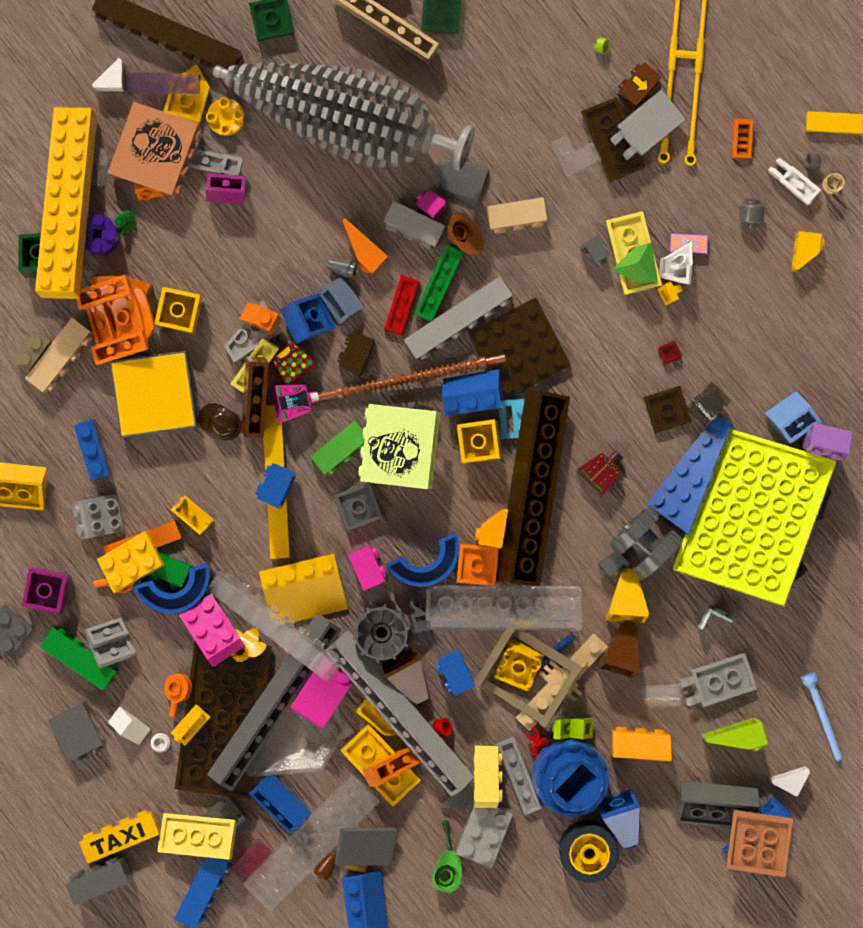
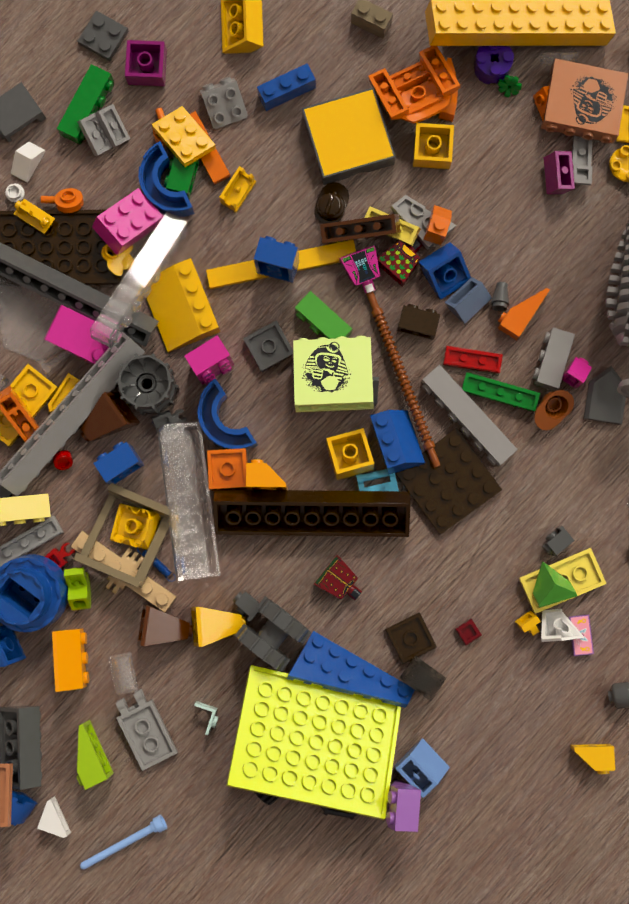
camera: 85 degrees right, 5 degrees down
(59, 355) = (371, 43): tan brick -> none
(516, 215) = (580, 458): tan brick -> none

